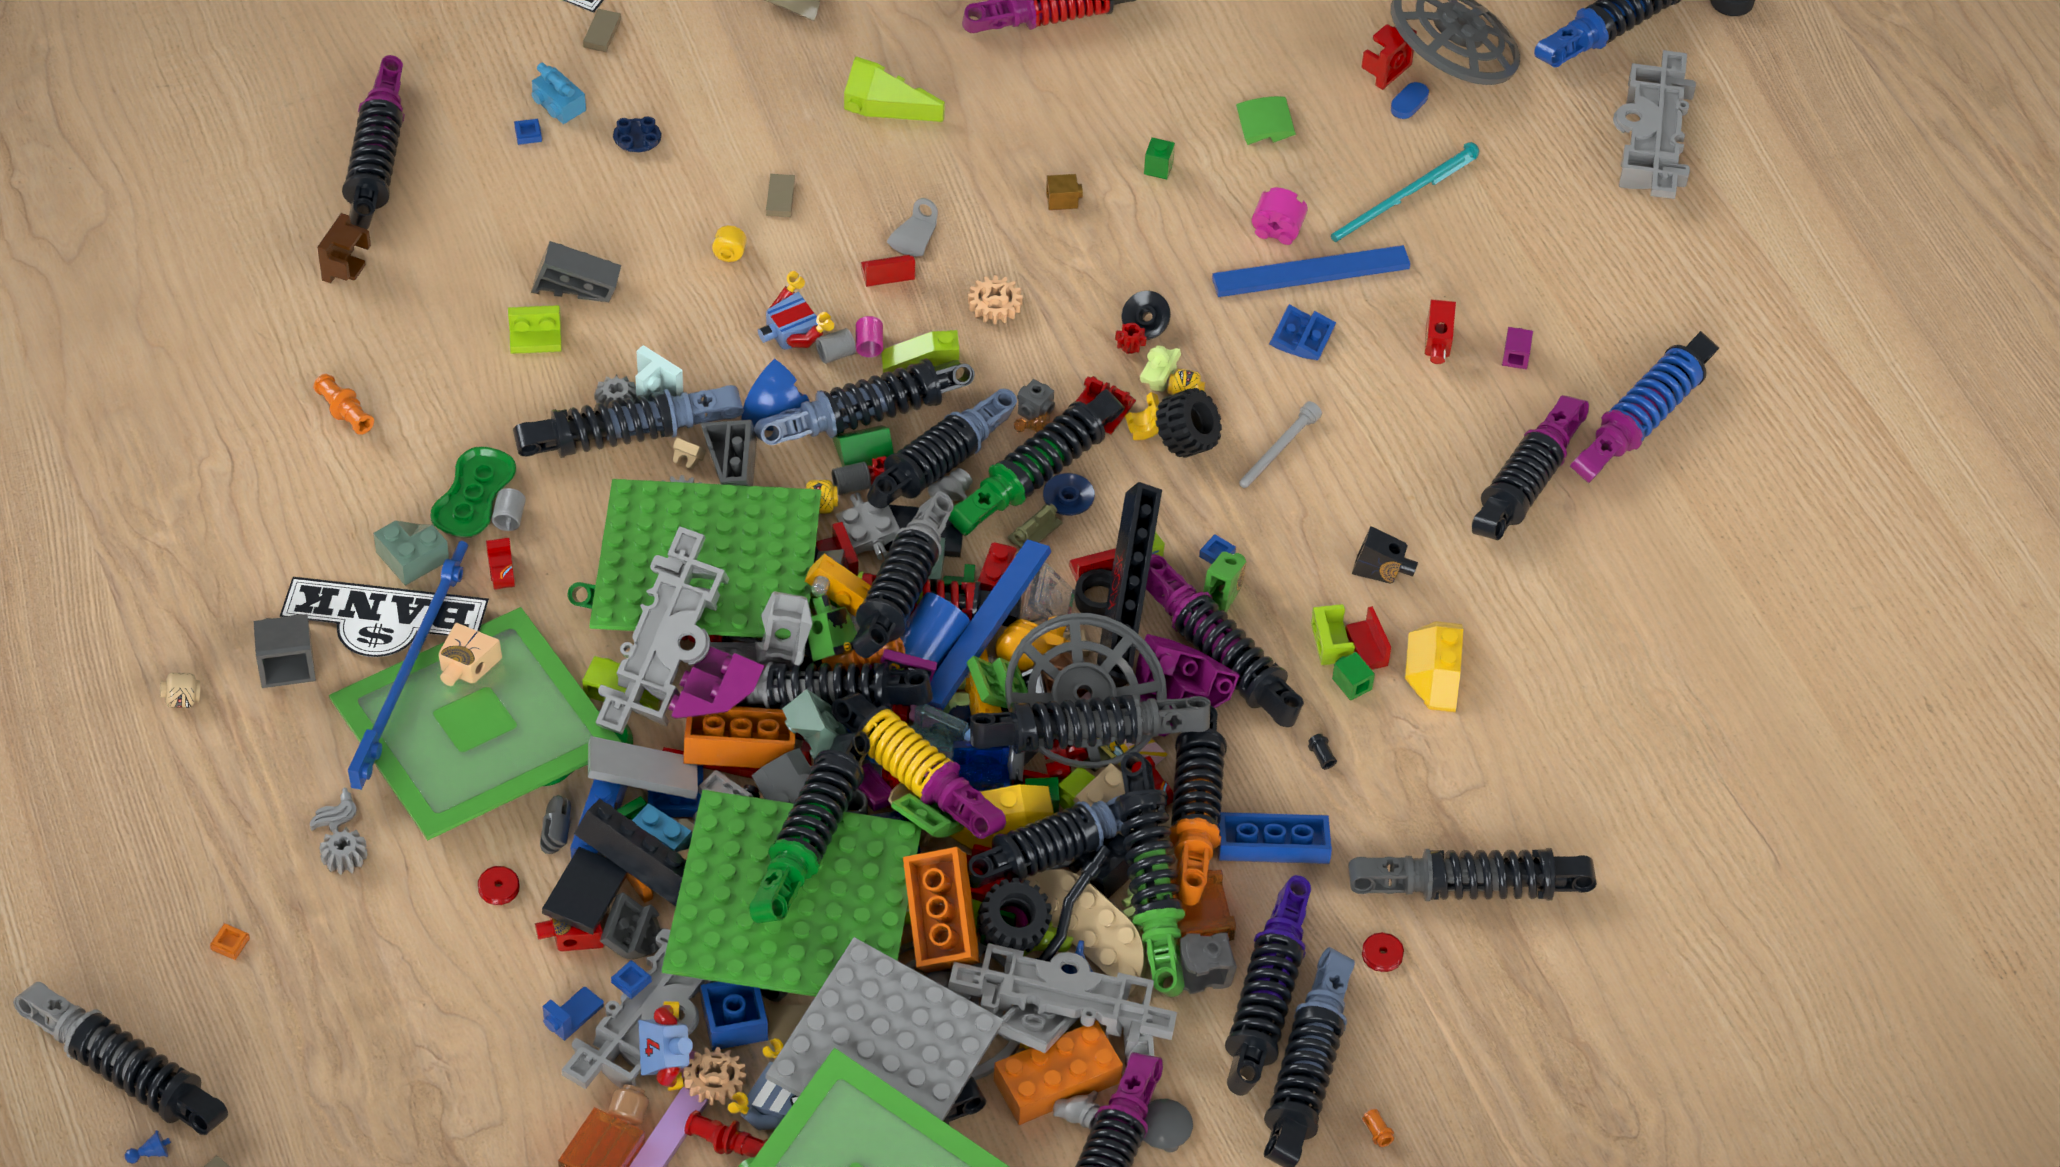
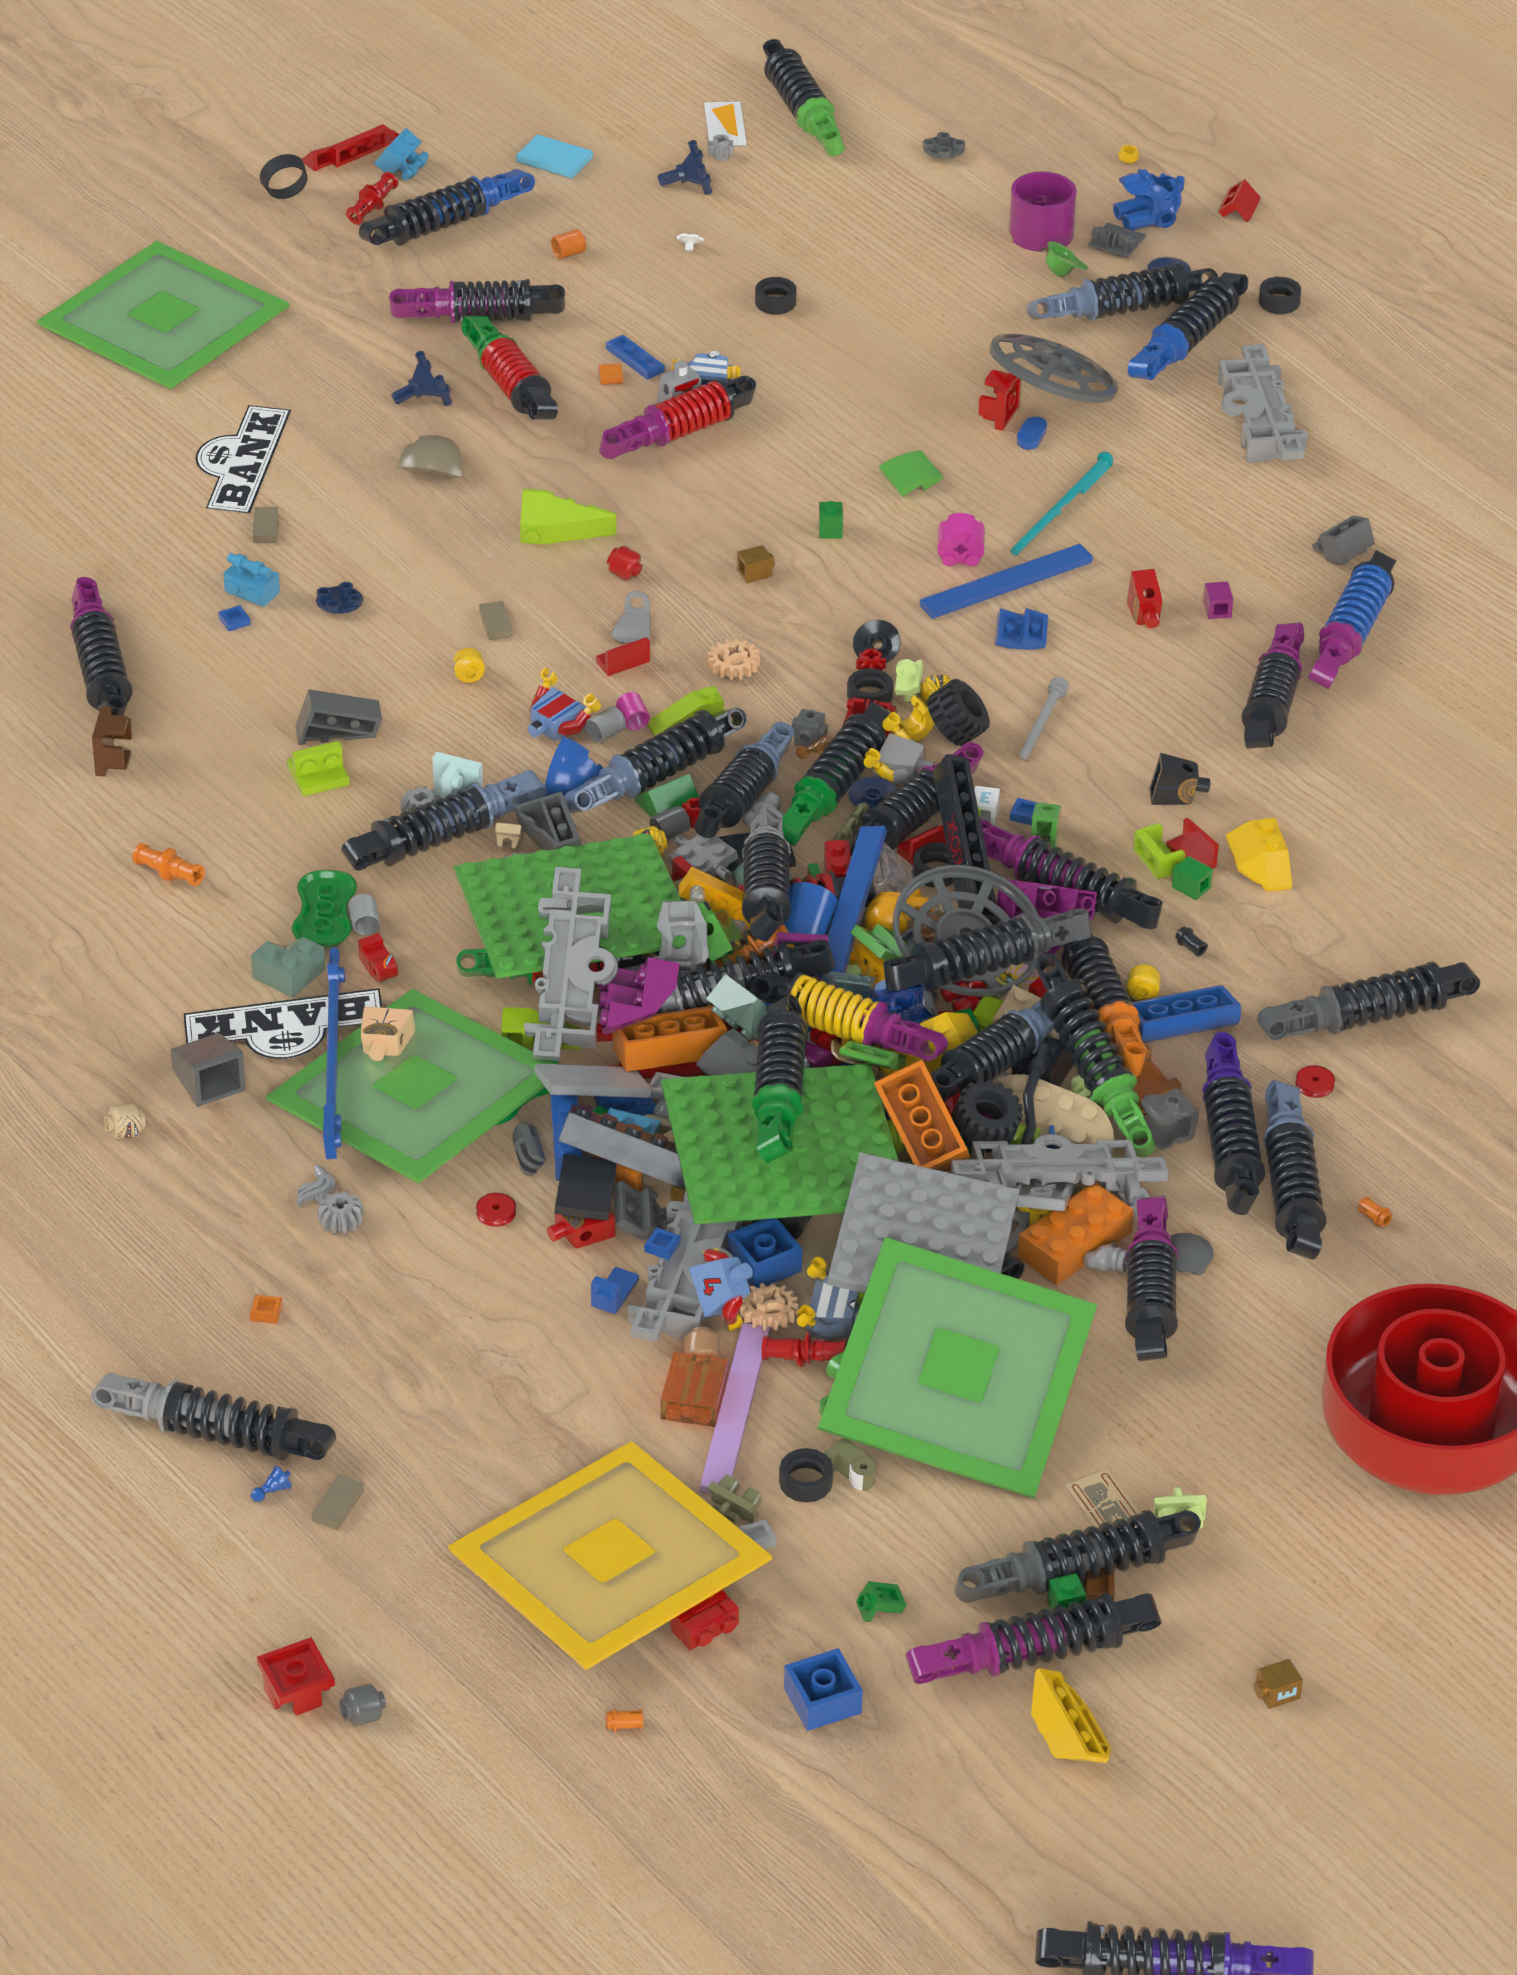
camera: 15 degrees left, 10 degrees down
(932, 160) = (624, 562): none -> red head
(1100, 516) = (912, 802): none -> black piece
(1113, 458) = (899, 755): none -> light grey torso
(1123, 354) = (870, 678): none -> black tyre
(1178, 535) = (988, 801): none -> white brick
(1250, 790) = (1143, 980): none -> yellow head
(1679, 308) = (1345, 540): none -> dark grey brick

